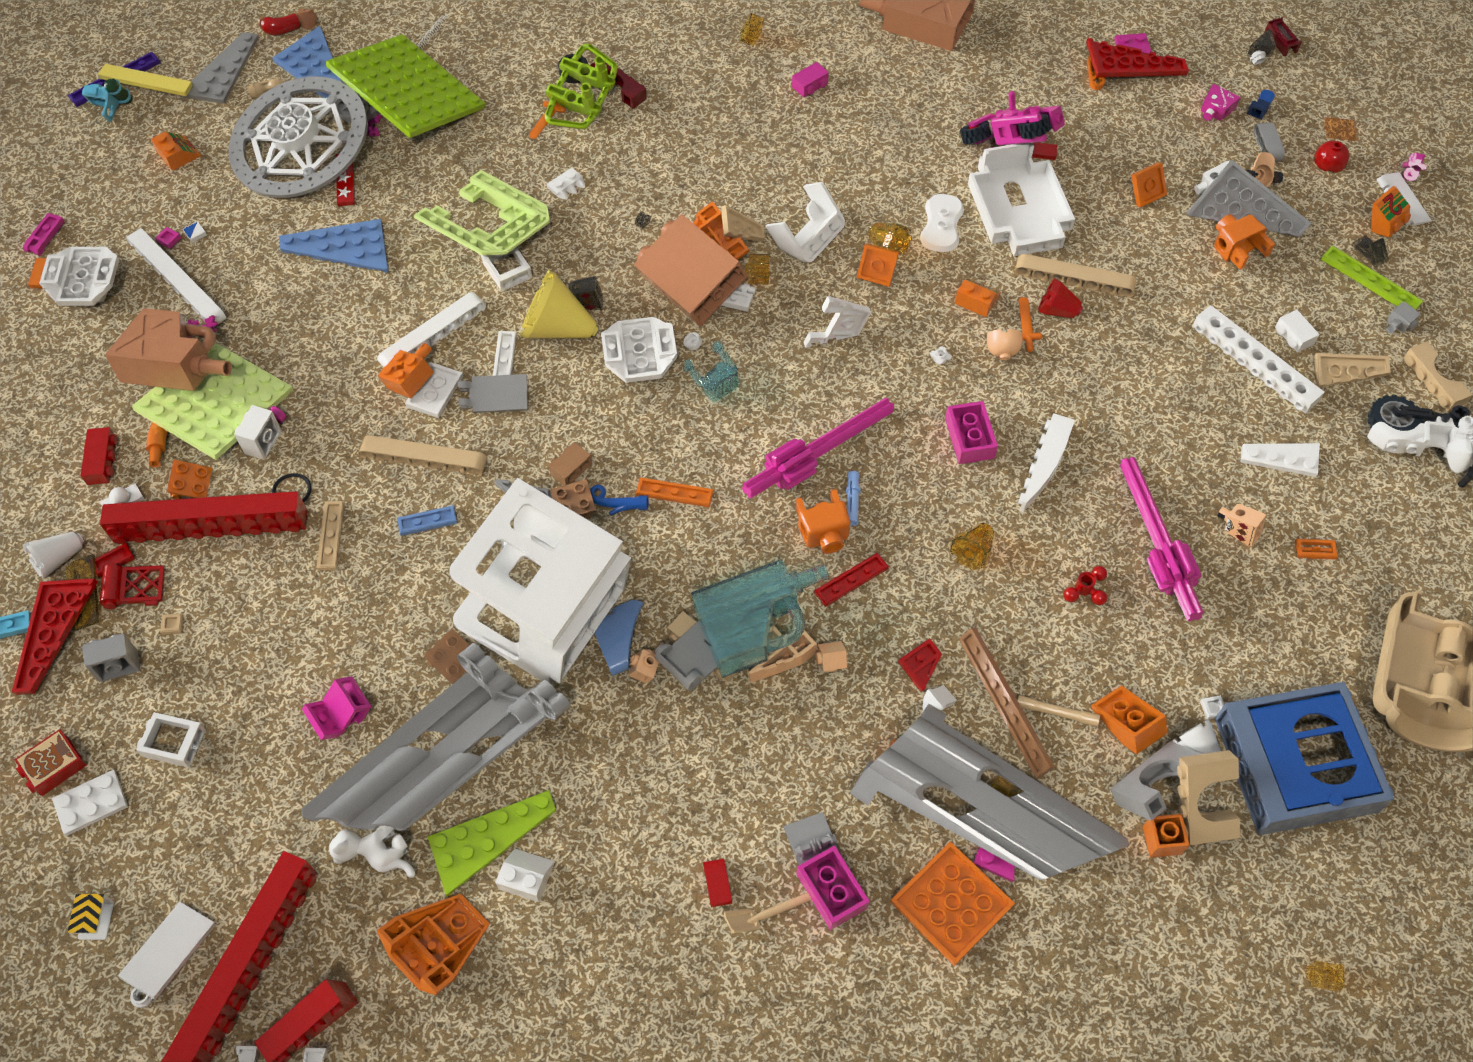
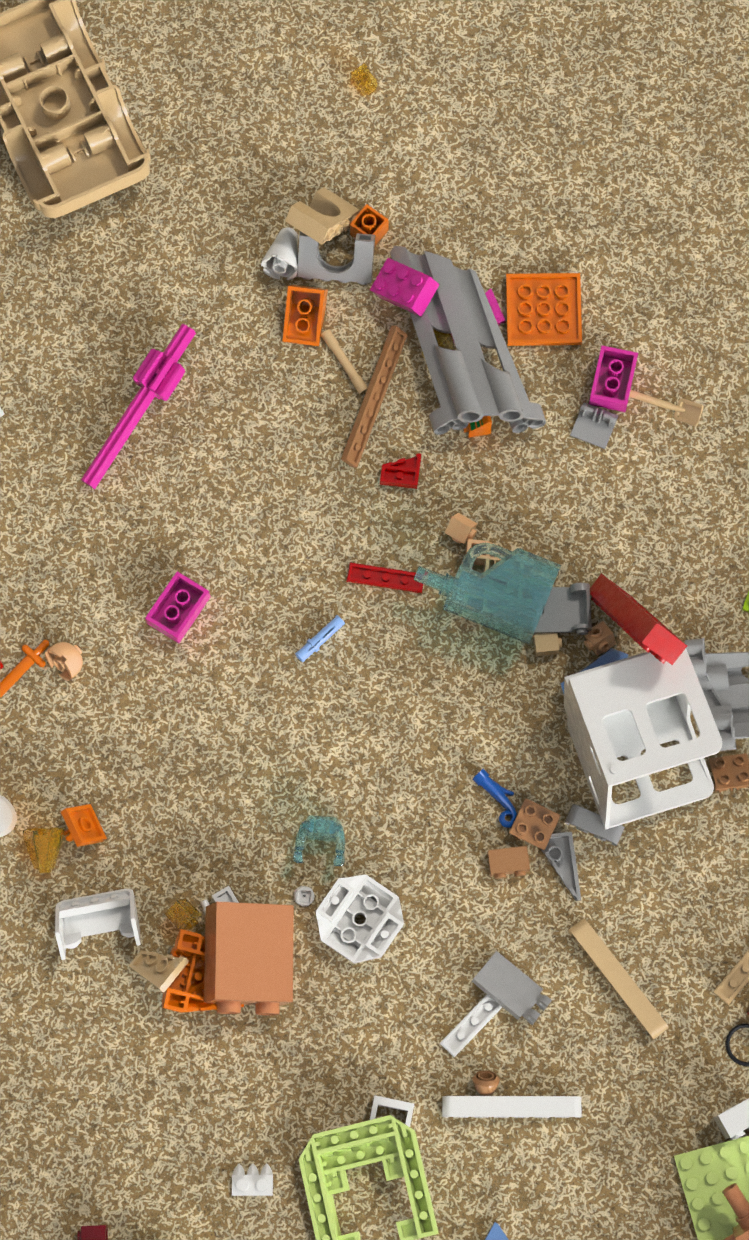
camera: 135 degrees left, 15 degrees up
(279, 414) = (709, 1132): dark pink tile -> none
(407, 371) = (561, 1065): orange brick -> none
(427, 520) = (659, 914): medium blue tile -> none
(436, 391) = (557, 1040): white plate -> none
(463, 330) = (485, 1082): none -> medium nougat cone
(557, 313) = (402, 1020): light yellow cone -> none
(588, 293) = (348, 1017): clear smoke torso -> none
(612, 644) = (636, 620): none -> red brick
(642, 220) = (226, 1068): clear smoke bush -> none
(675, 492) = (447, 767): orange tile -> none
(717, 883) = (682, 449): red slope -> none
(796, 462) = (339, 699): dark pink axle -> none
(824, 523) = (366, 628): orange piece -> none
(846, 323) = (180, 792): white wing -> none
(939, 698) = (418, 436): white tile -> none
(940, 359) = (123, 705): white plate -> none
(973, 546) = (272, 518): clear yellow cone -> none
(976, 297) = (30, 726): orange slope -> none
(1047, 458) = (144, 537): white slope -> none
(1079, 802) = (404, 287): none -> dark pink brick
(1098, 597) = (228, 407): red piece -> none
(1212, 706) = (239, 275): white tile -> none
(1243, 523) = (68, 357): light nougat torso -> none
(1273, 768) = (250, 209): door -> none
(1316, 552) = (46, 319): orange tile -> none

